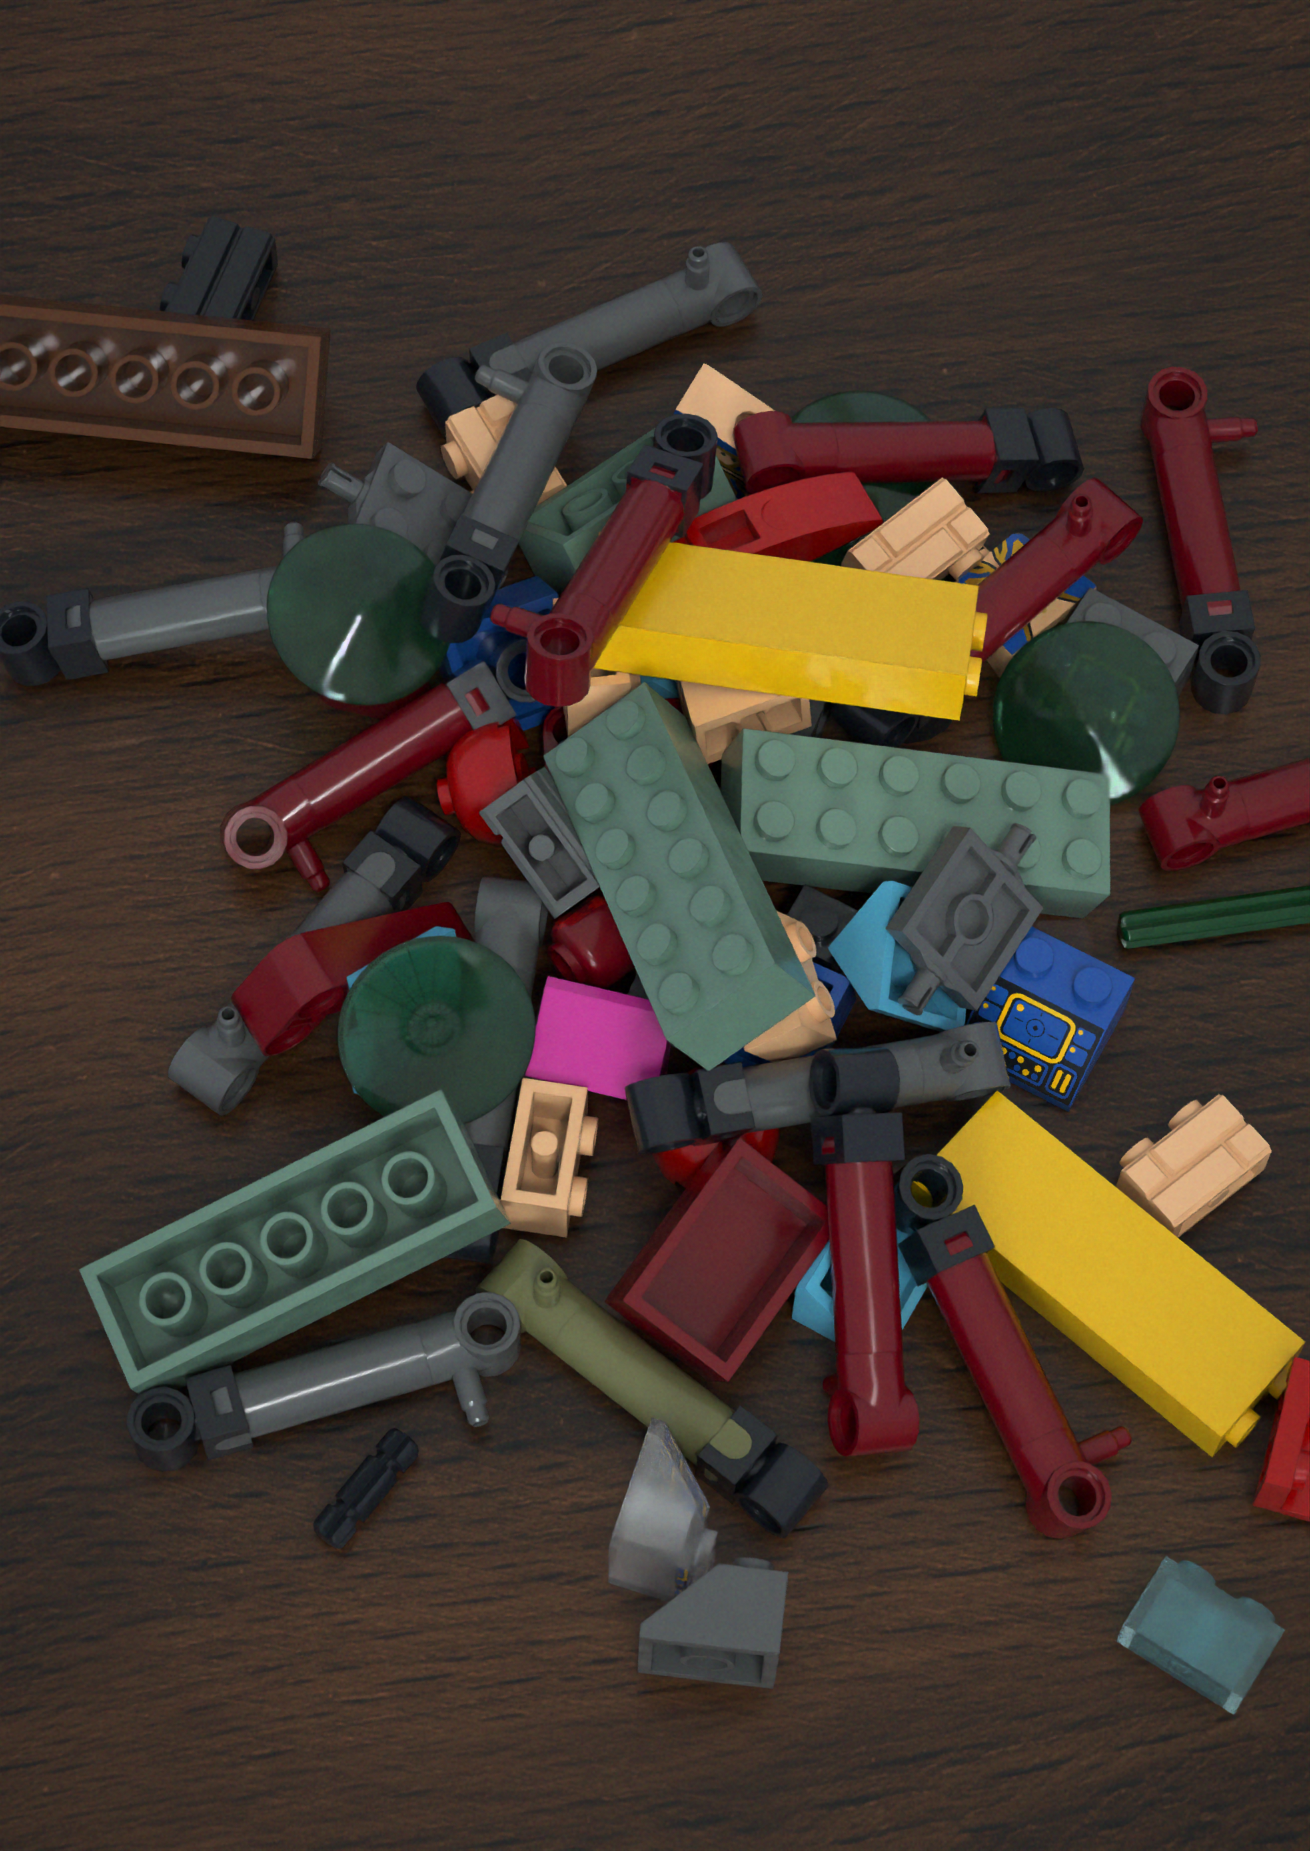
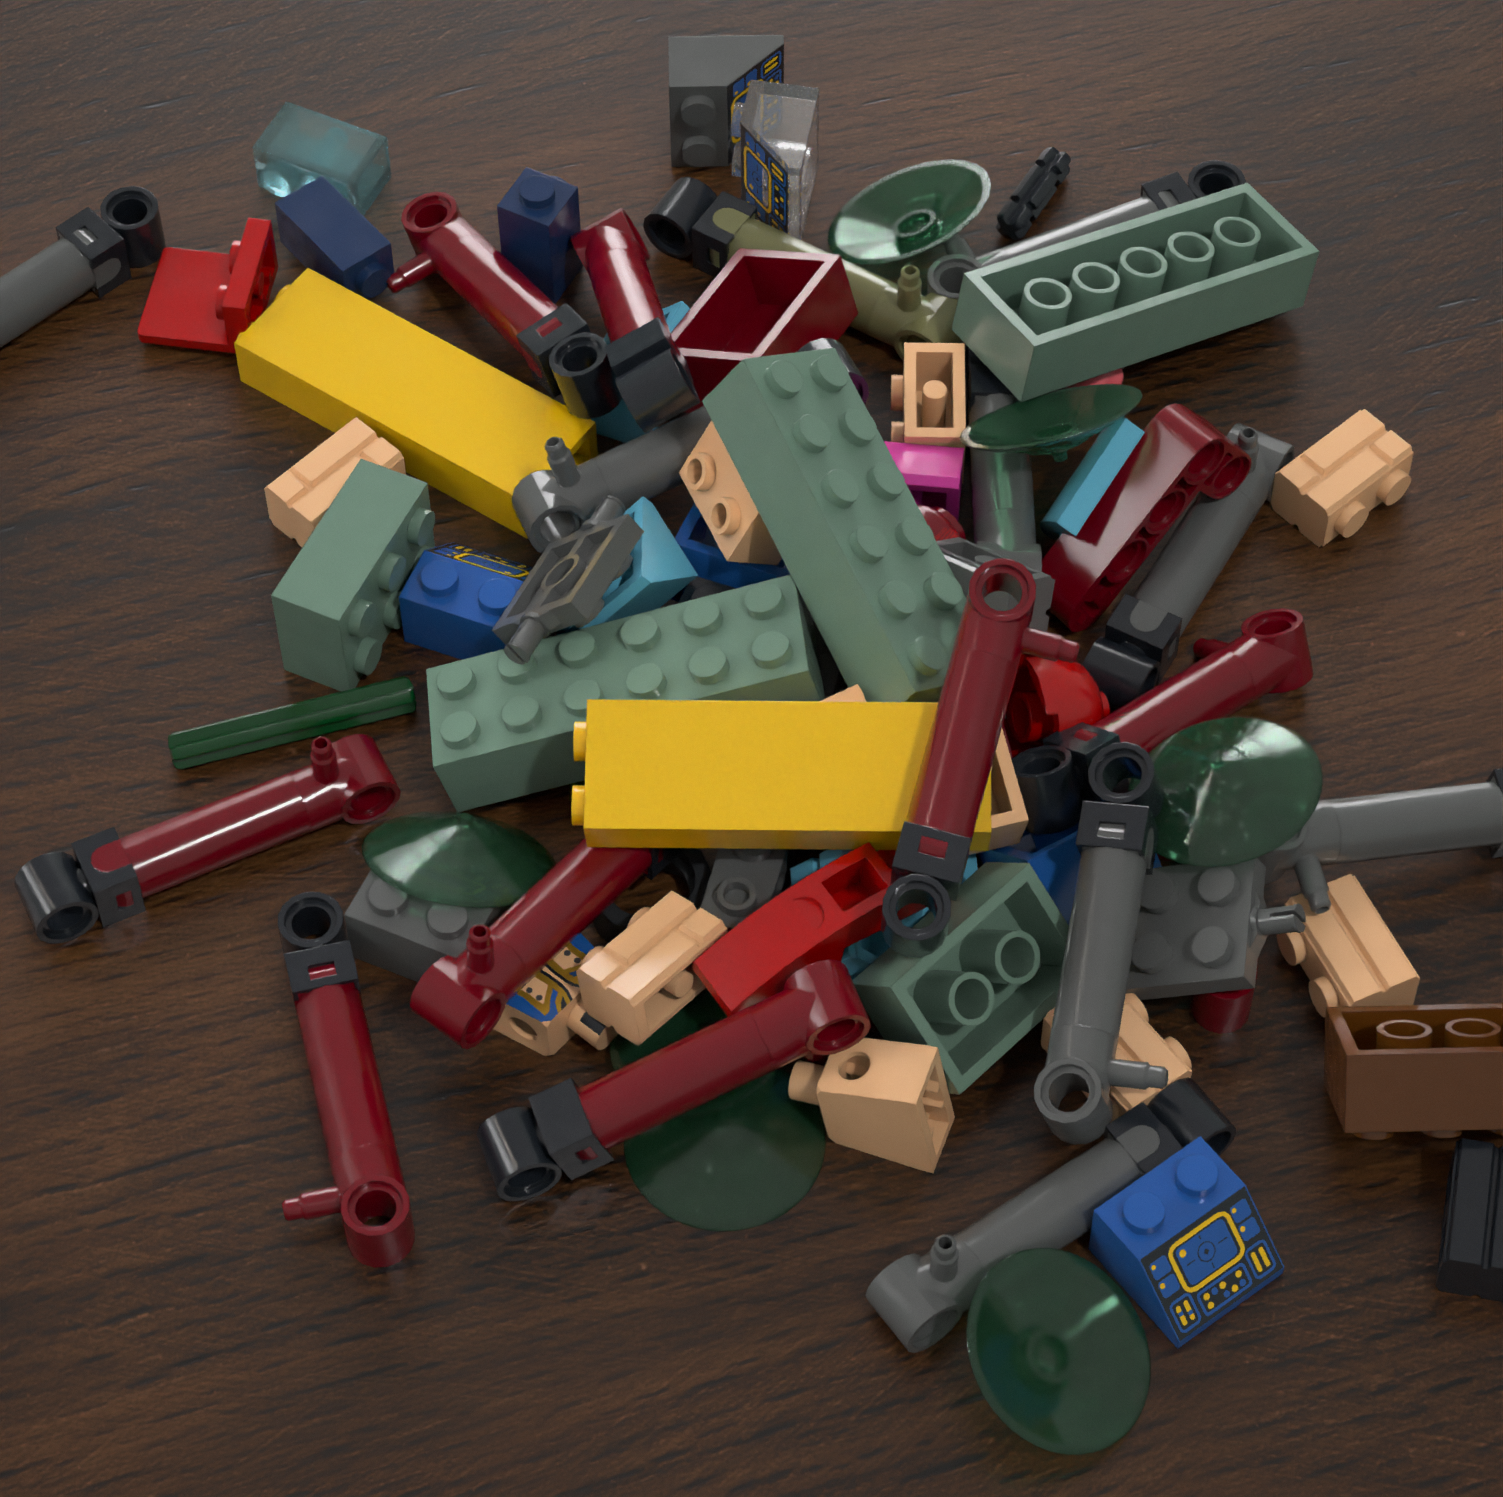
camera: 175 degrees right, 10 degrees down
(123, 1036) = (1343, 479): none -> light nougat brick
(260, 506) = (1349, 952): none -> light nougat brick
(484, 299) = (1185, 1242): none -> slope
(520, 1447) = (909, 211): none -> clear green hat
(610, 221) = (1058, 1351): none -> clear green hat
(951, 1446) = (536, 230): none -> dark blue brick
(1174, 1019) = (349, 576): none -> sand green brick
(1186, 1490) = (334, 238): none -> dark blue brick

